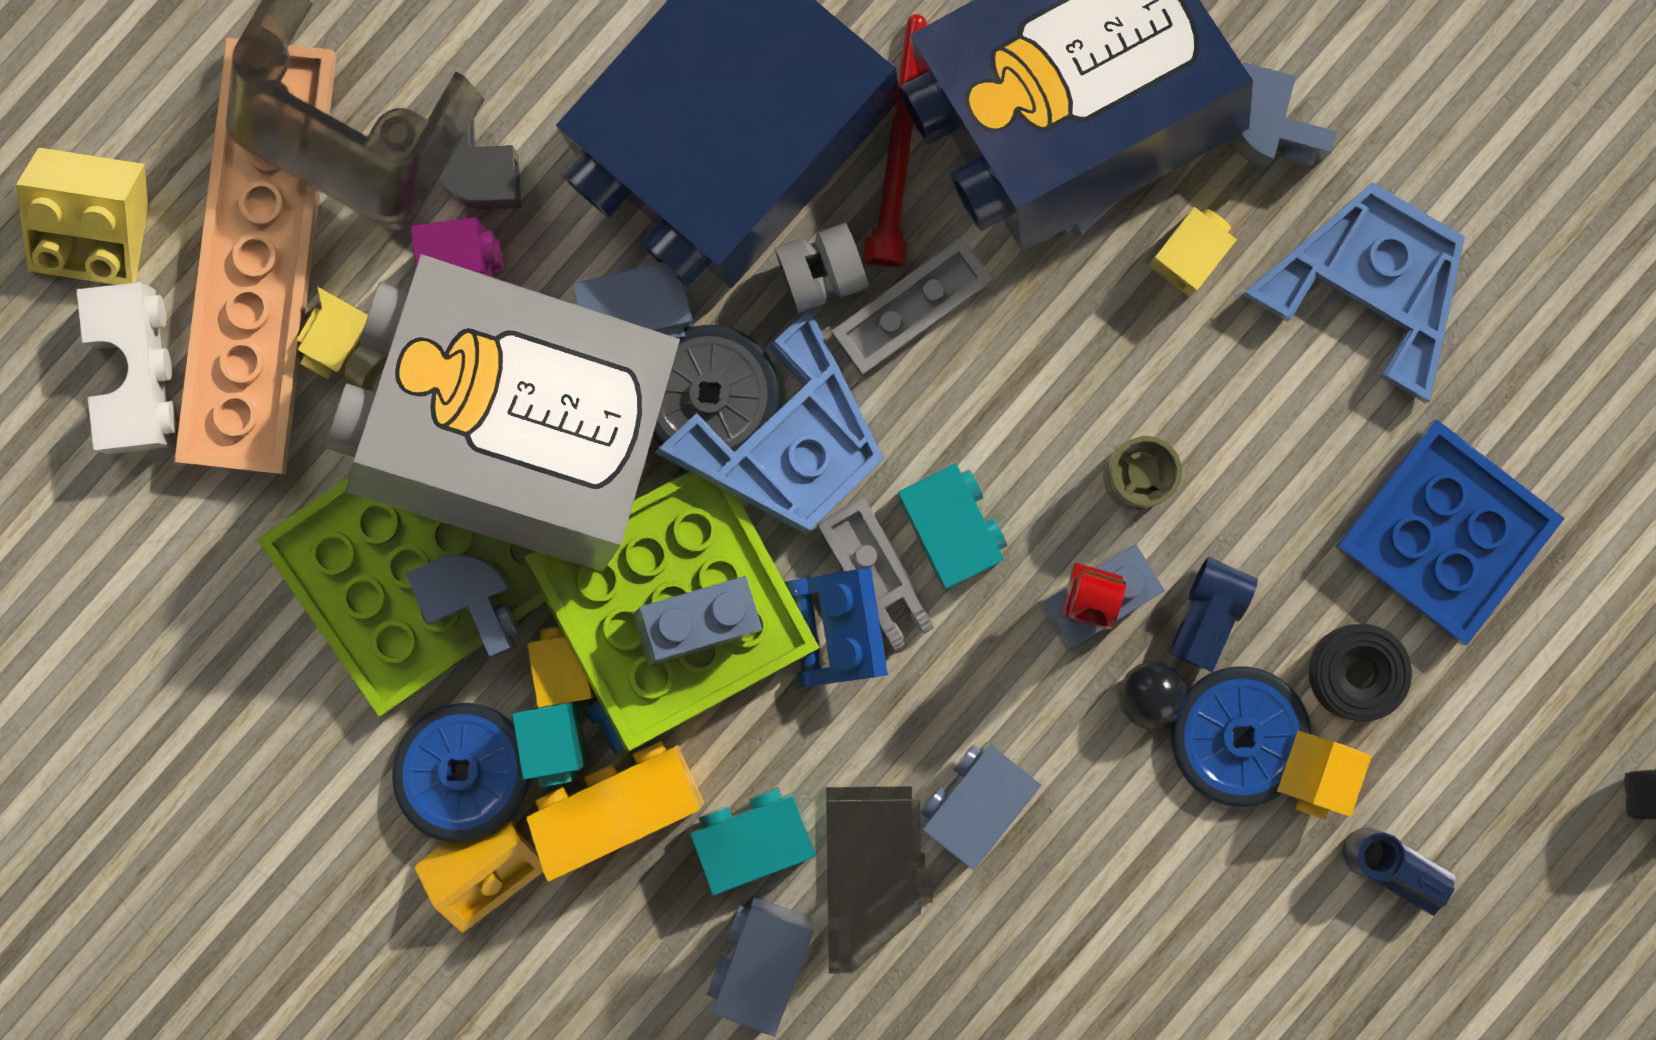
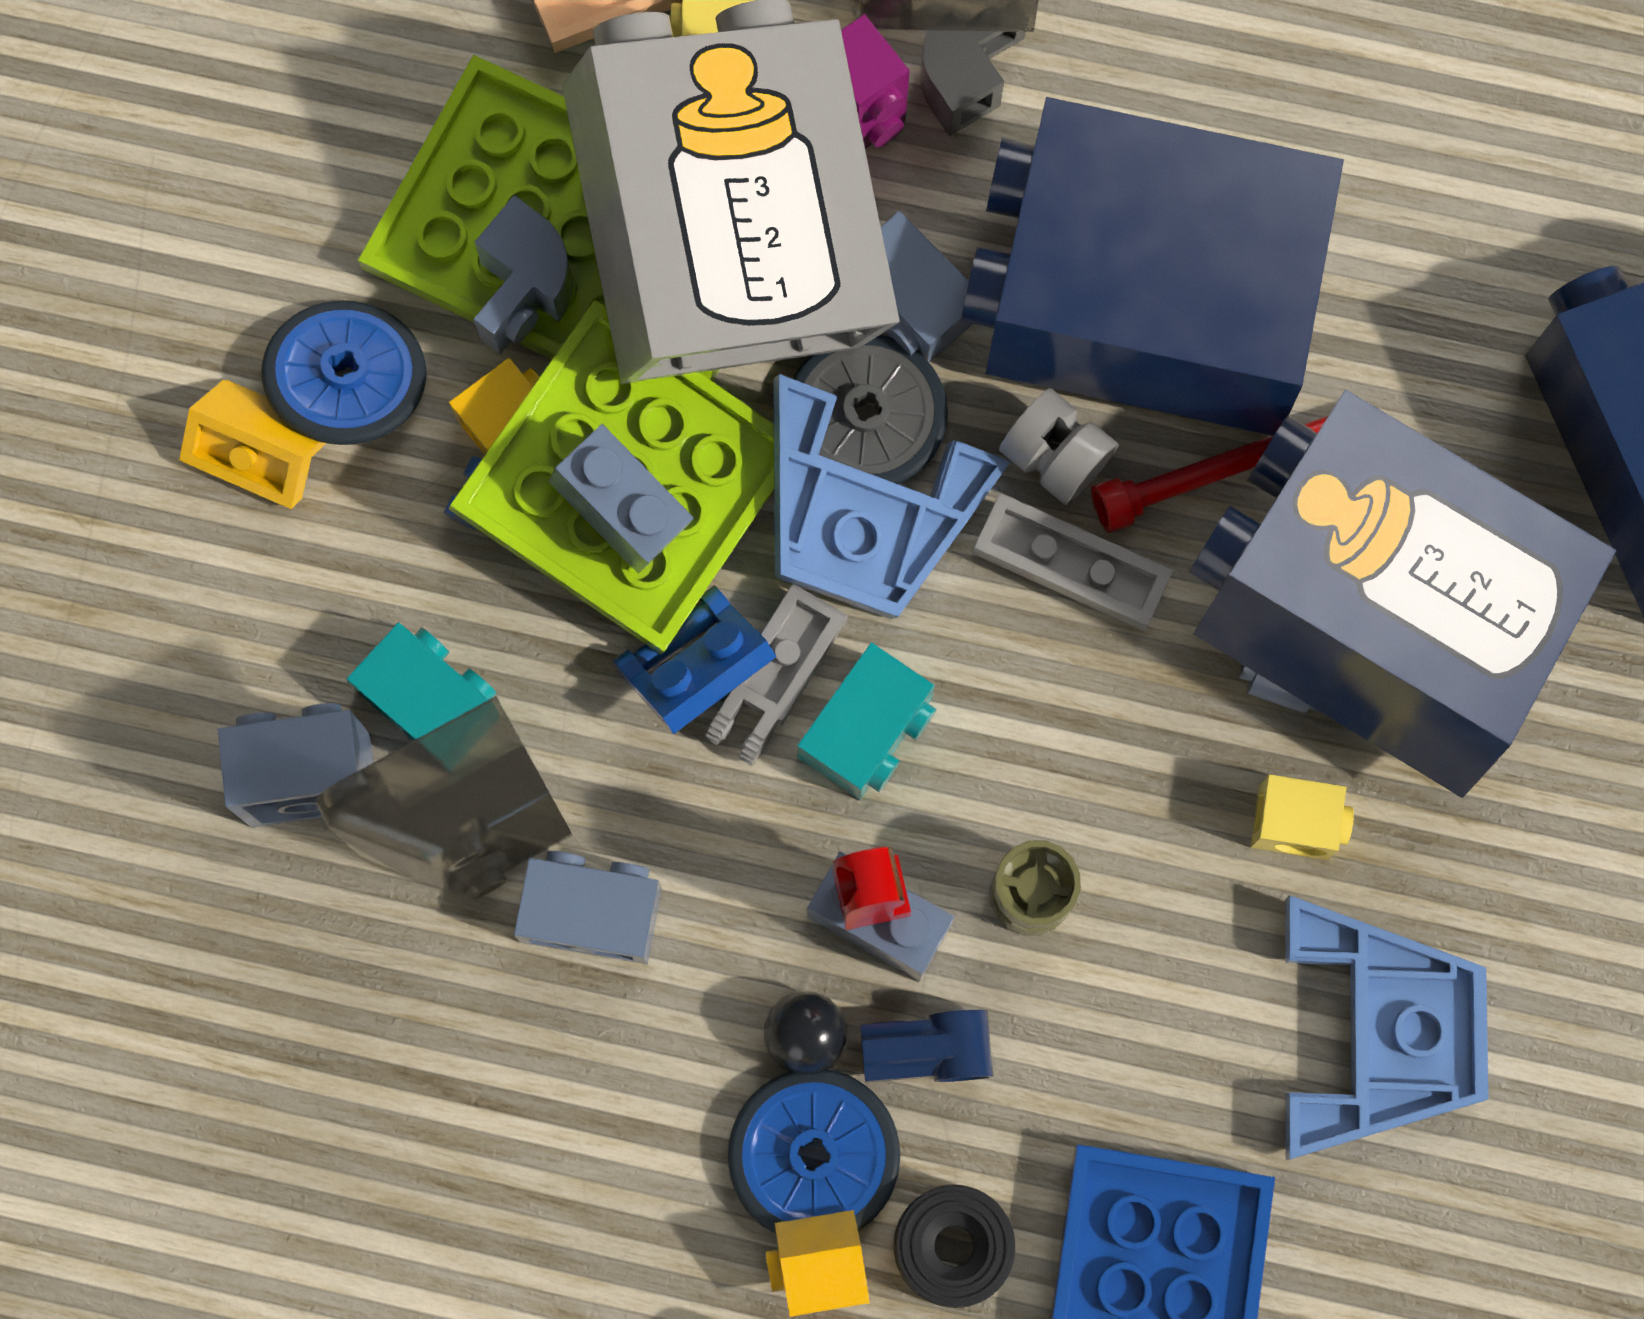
camera: 65 degrees right, 10 degrees down
(550, 743) = (420, 432): teal brick -> none
(613, 809) = (383, 536): yellow slope -> none
(1271, 129) = (1496, 806): sand blue brick -> none

